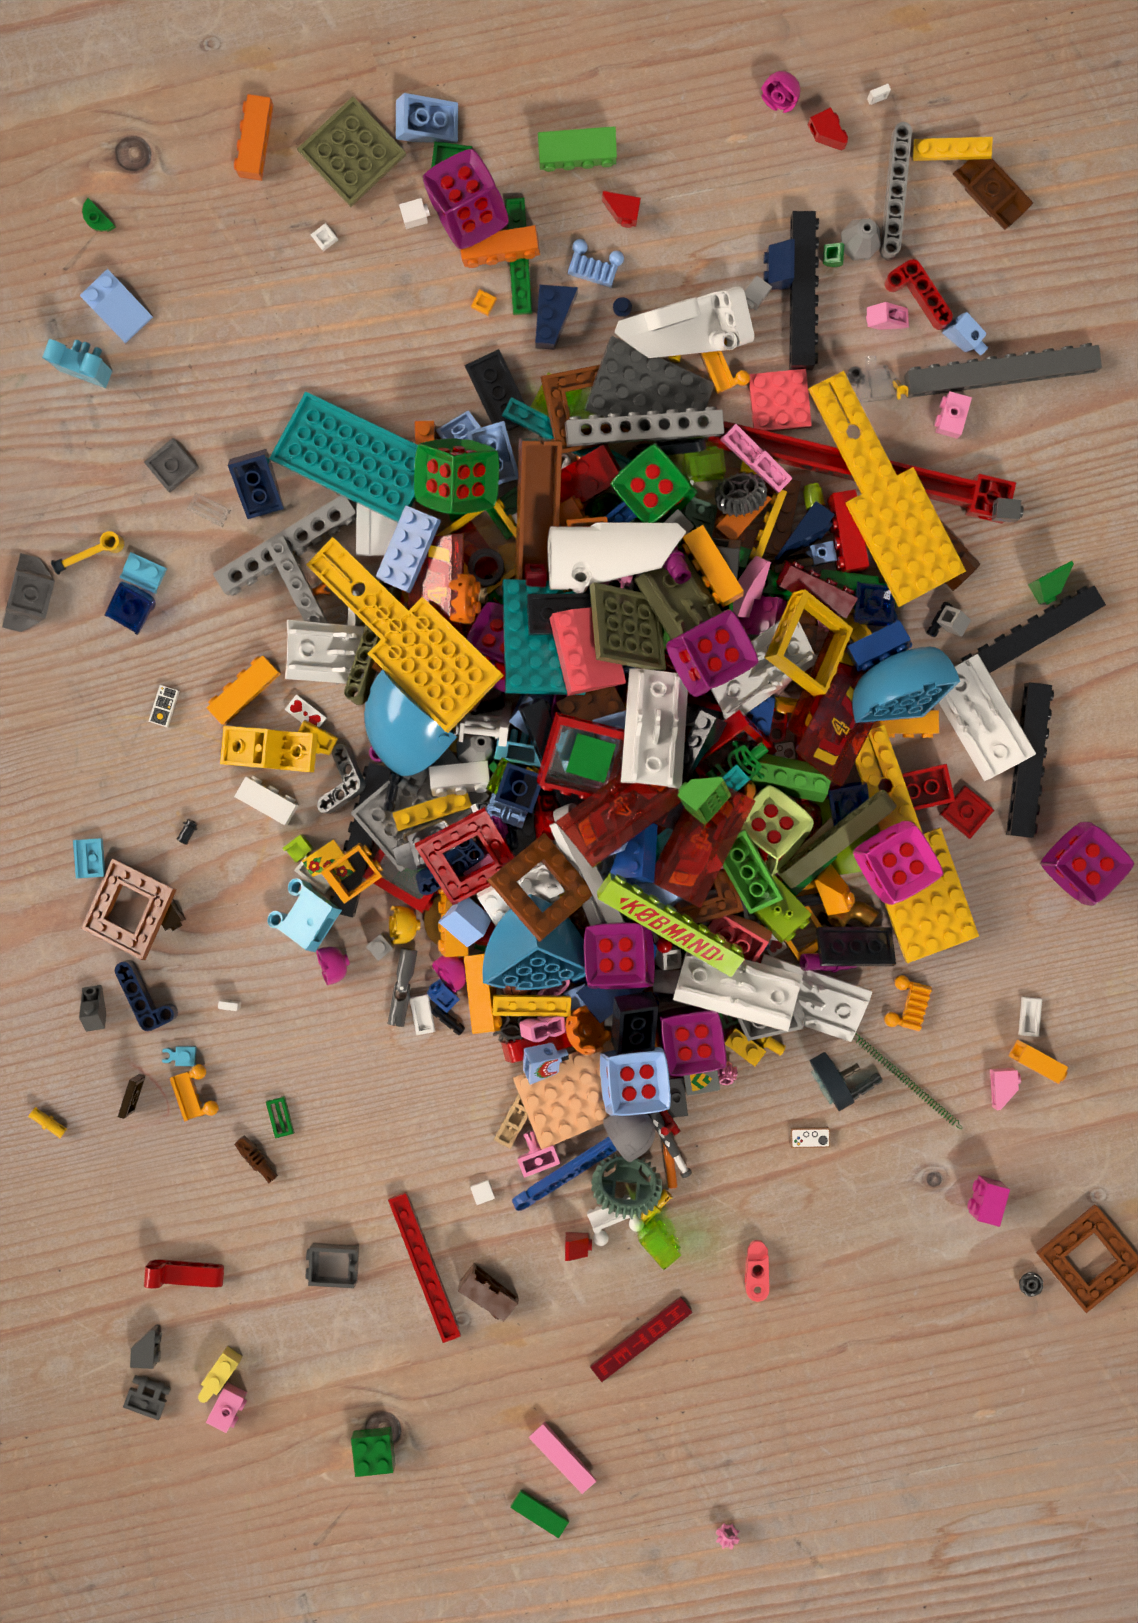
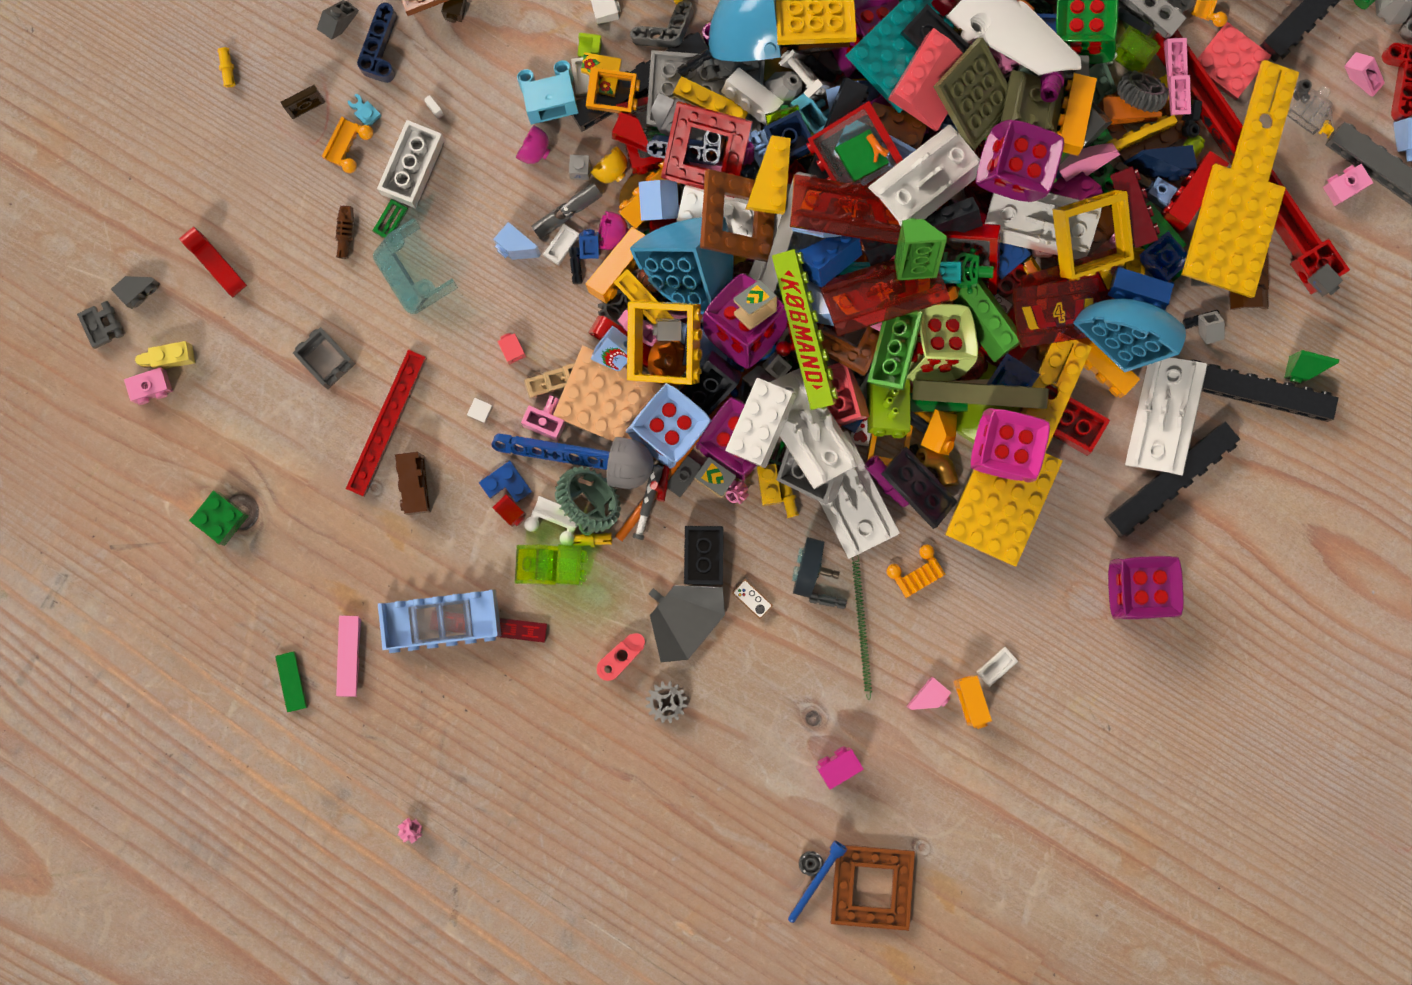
camera: 45 degrees right, 5 degrees down
(255, 1064) = (411, 164): none -> white brick
(351, 1160) = (411, 296): none -> clear light blue windscreen
(388, 1050) = (514, 244): none -> light blue slope
(393, 889) = (629, 131): none -> red slope
(461, 1126) = (511, 348): none -> coral brick
(541, 838) = (772, 178): none -> yellow wing
(551, 1220) = (508, 478): none -> blue plate
(555, 1047) = (635, 342): none -> yellow window
(566, 1012) = (667, 329): none -> light grey brick
(598, 743) = (877, 148): none -> orange bar
(604, 1372) = (439, 621): none -> light blue window
(621, 947) = (755, 304): none -> piece
(634, 1267) = (536, 564): none -> clear neon green brick
(704, 1021) = (761, 422): none -> white brick
(746, 1143) = (703, 555): none -> black brick
(776, 1201) = (685, 619): none -> dark grey panel
(799, 485) = (1191, 128): none -> black plate
(828, 1269) = (674, 707): none -> light grey gear
(967, 812) = (1091, 475): red tile -> none
(1043, 1259) = (836, 851): none -> blue piece

